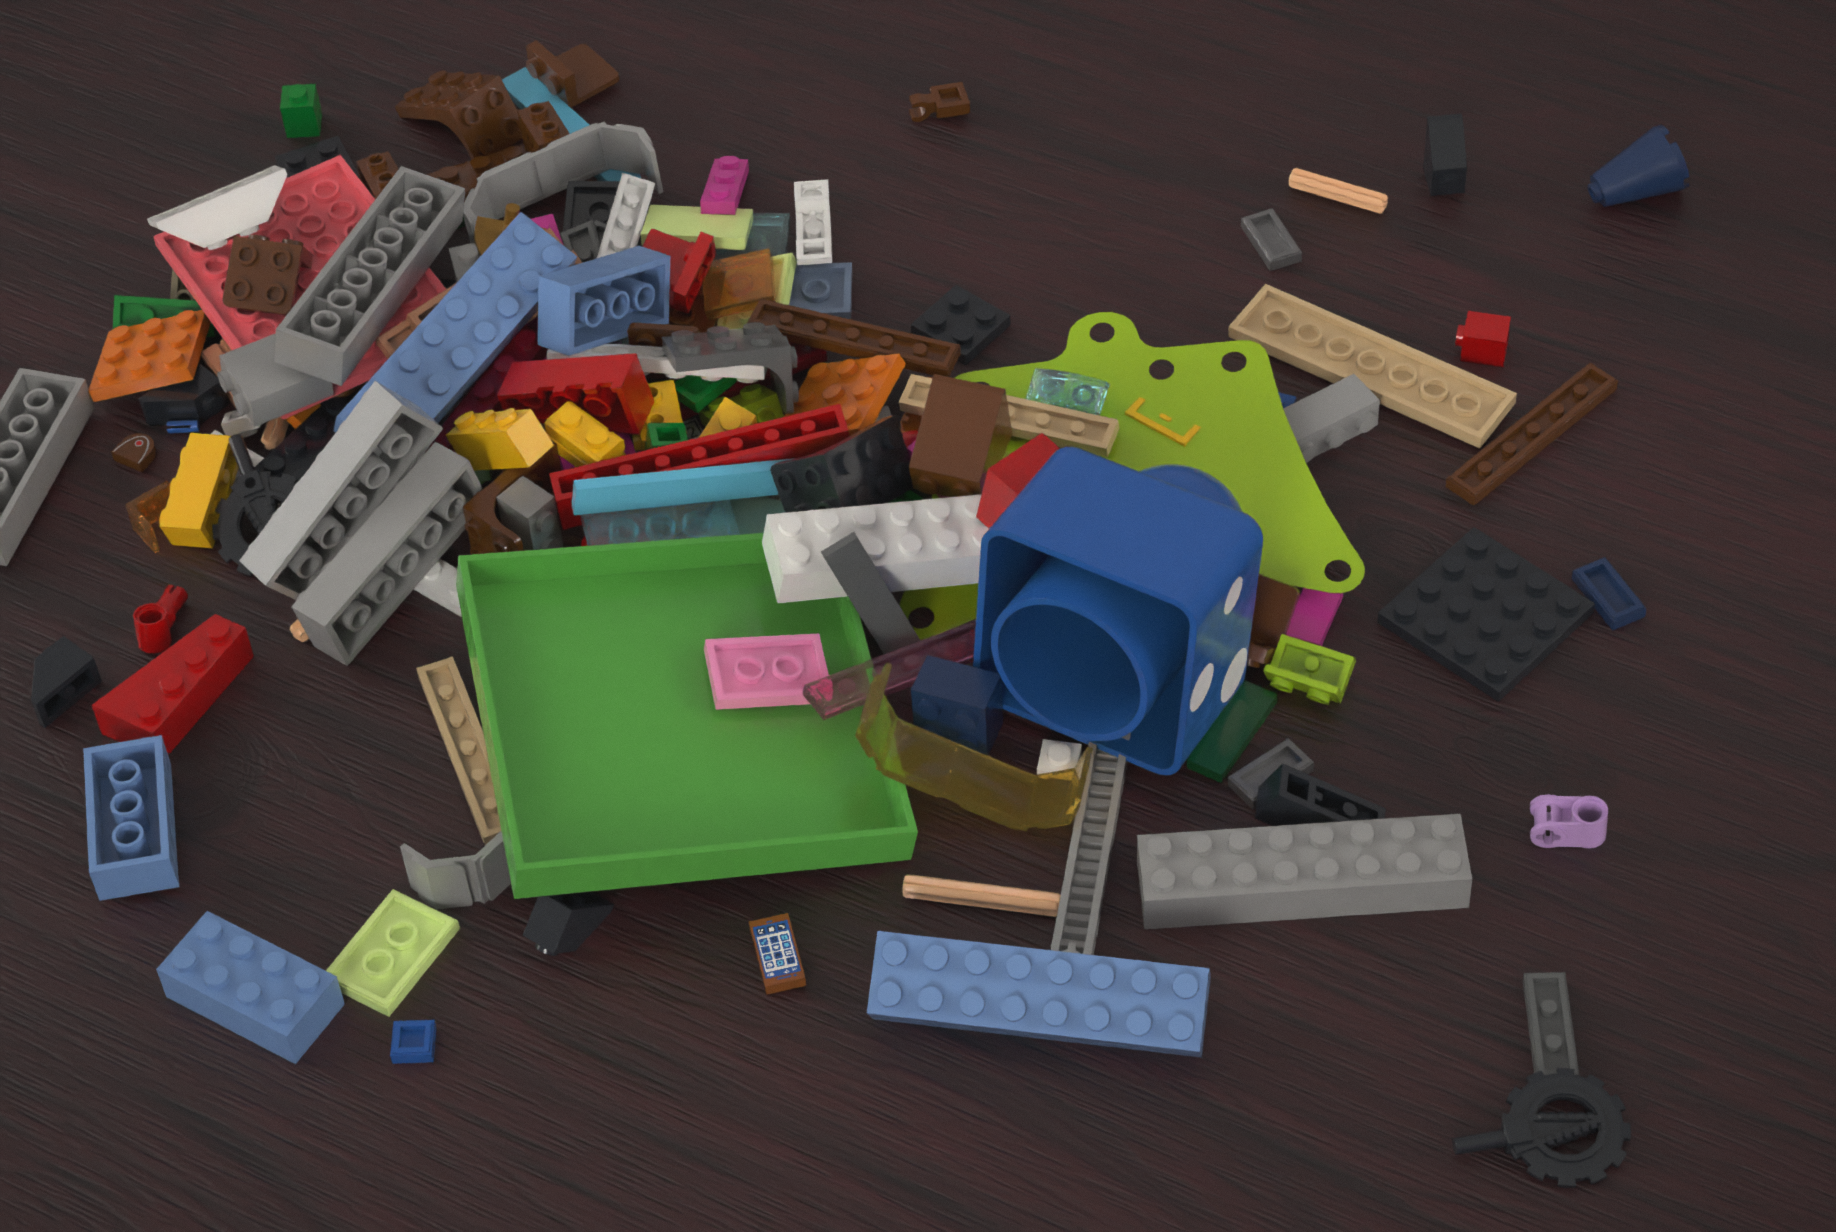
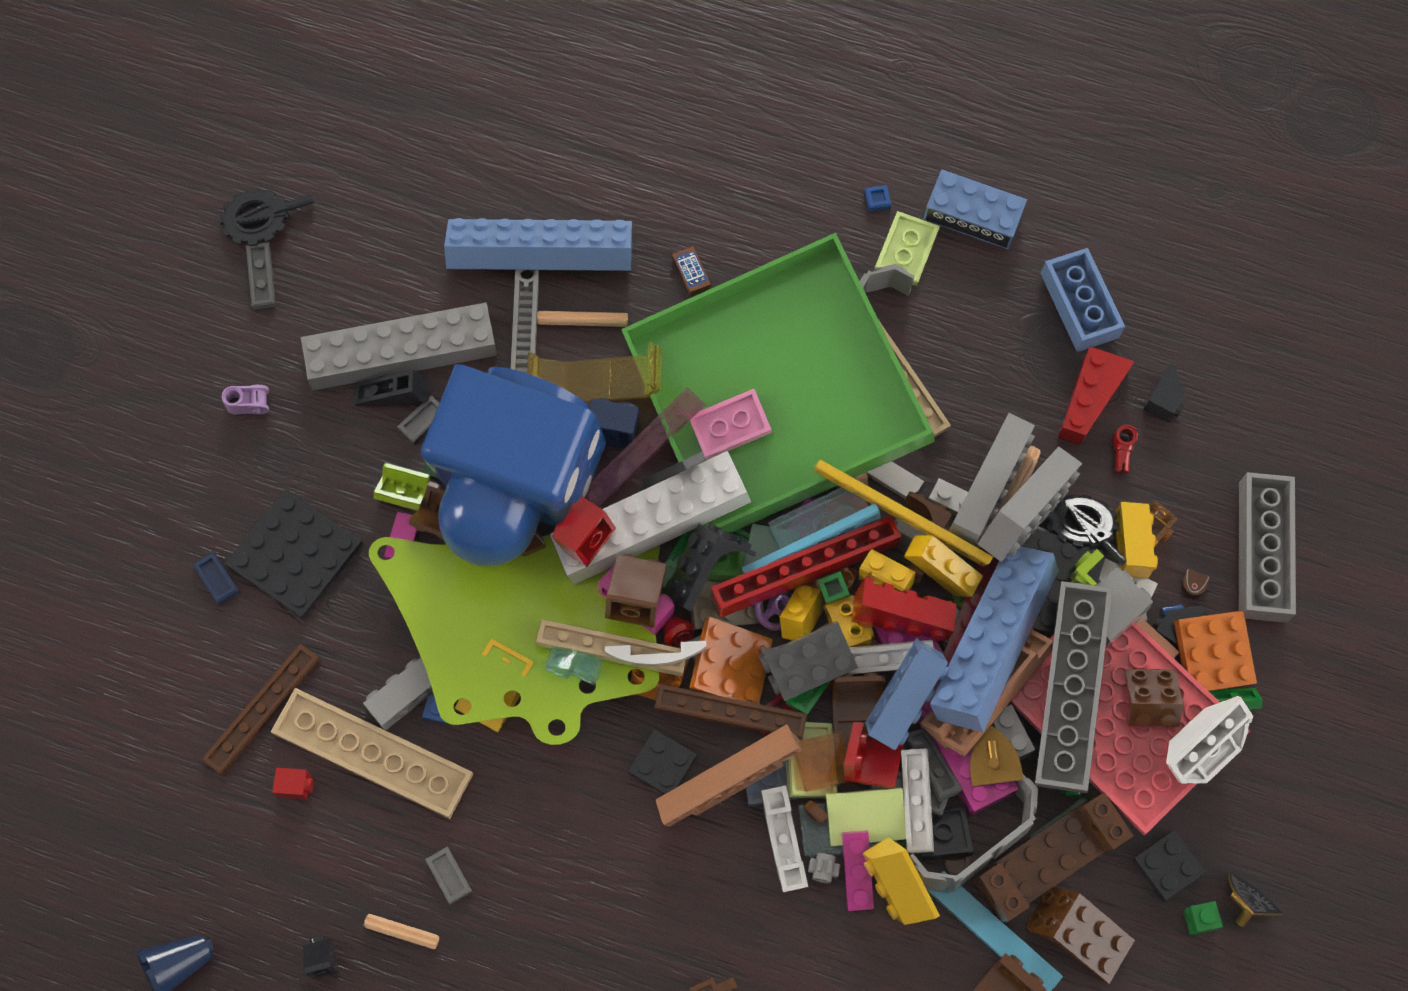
camera: 165 degrees right, 20 degrees up
(230, 119) = (1250, 900): none -> shield
(293, 421) = (1083, 566): none -> lime bracket
(554, 493) = (902, 513): none -> yellow tile
(680, 158) = (899, 883): none -> yellow slope
(762, 234) = (815, 813): none -> reddish brown tile
(768, 194) = (824, 868): none -> light grey gear
(870, 255) = (728, 776): none -> nougat slope
(915, 371) = (623, 654): none -> white slope

